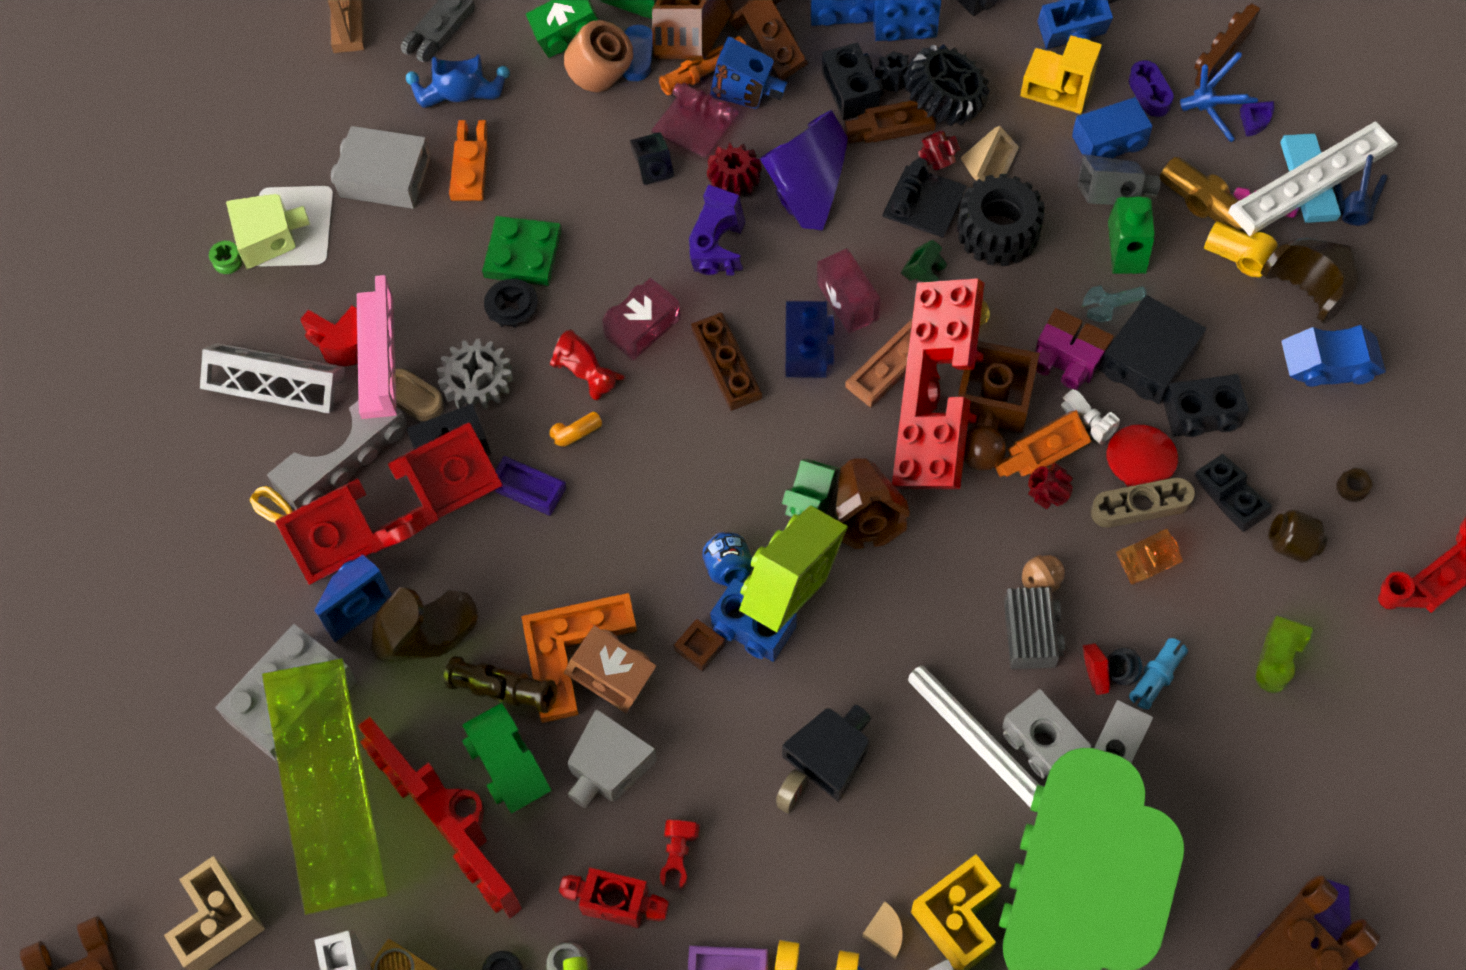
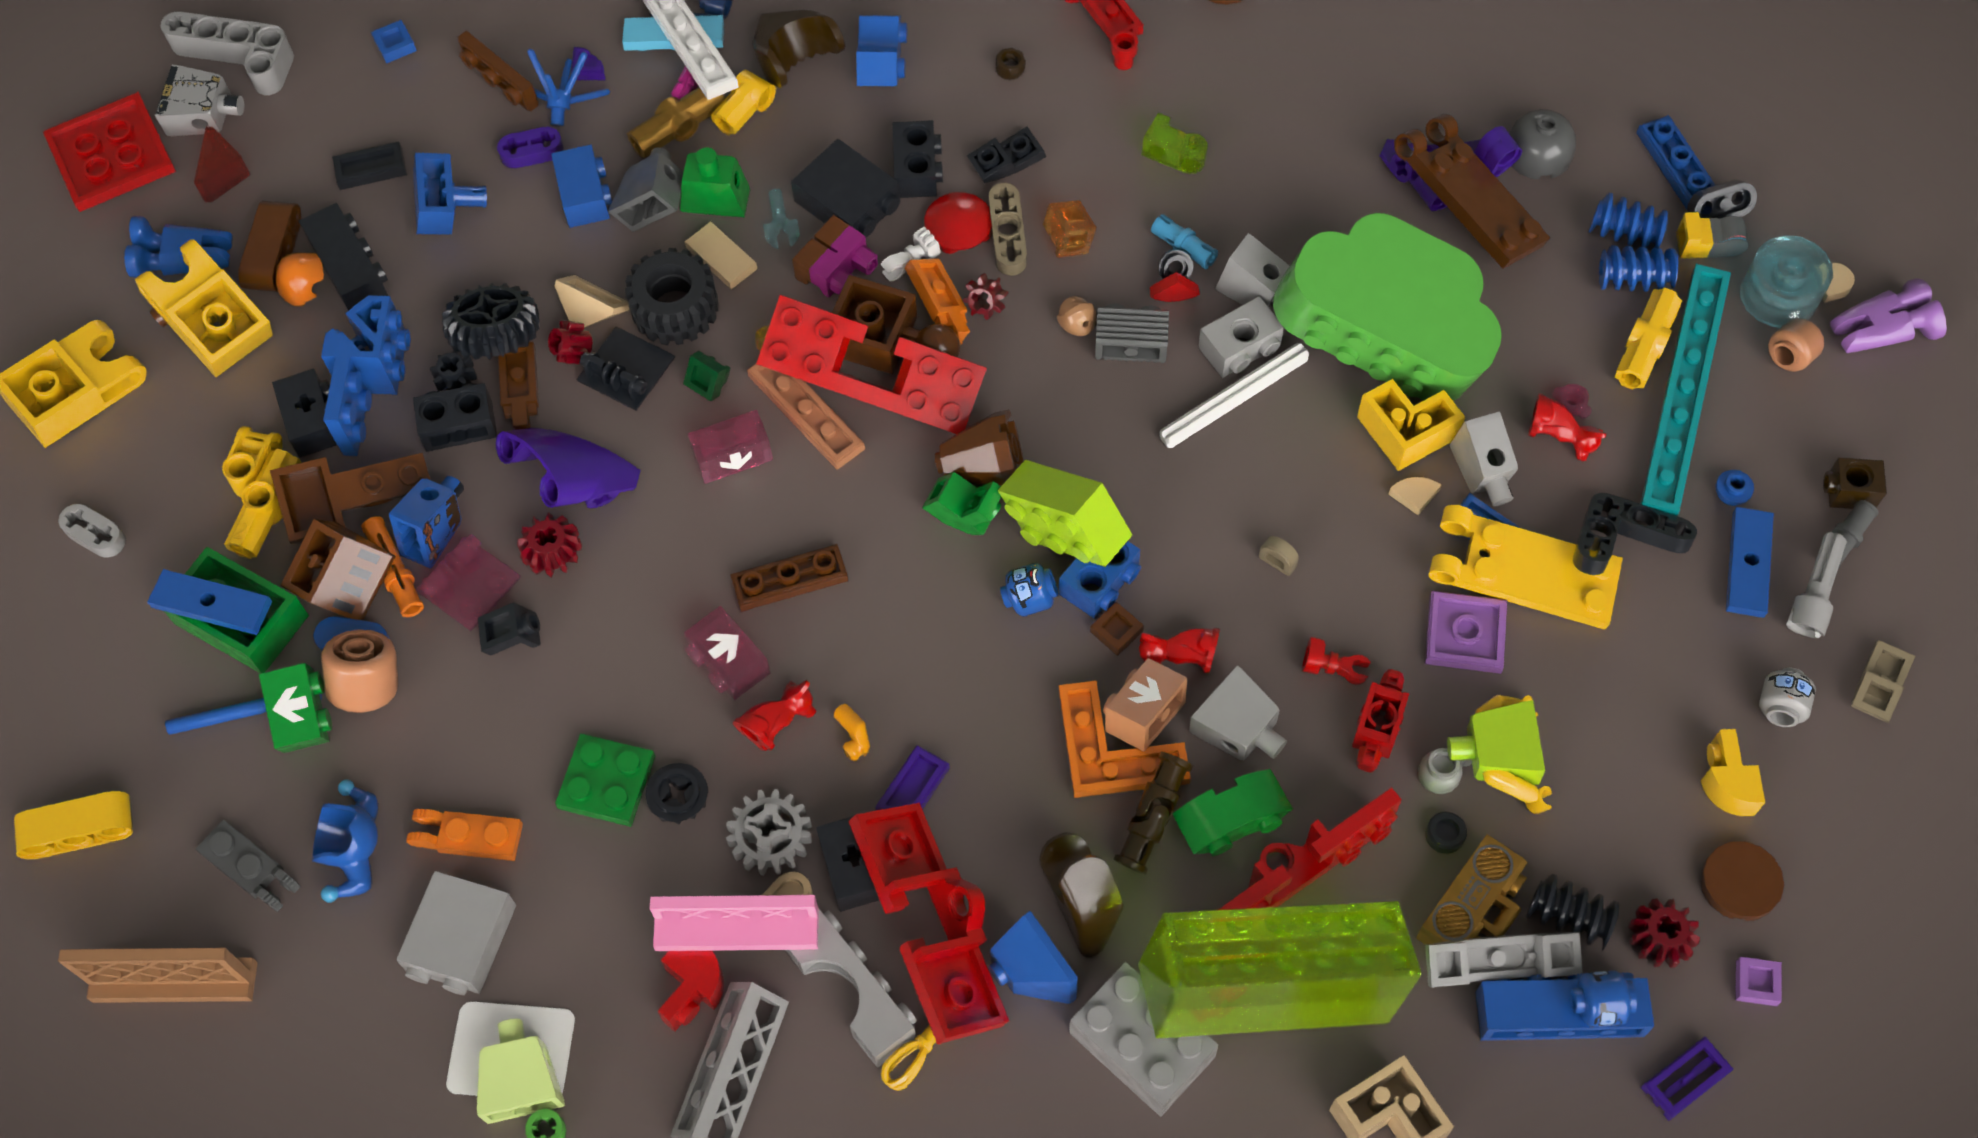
camera: 85 degrees left, 0 degrees up
(679, 710) = (1189, 646): none -> red animal
(719, 214) = (616, 561): dark purple tile -> none
(807, 339) = (781, 493): clear blue brick -> none
(830, 749) = (1241, 516): black torso -> none
(1061, 257) = (721, 255): none -> tan tile
(1064, 78) = (507, 213): yellow brick -> none
(1297, 535) = (1061, 111): dark brown head -> none

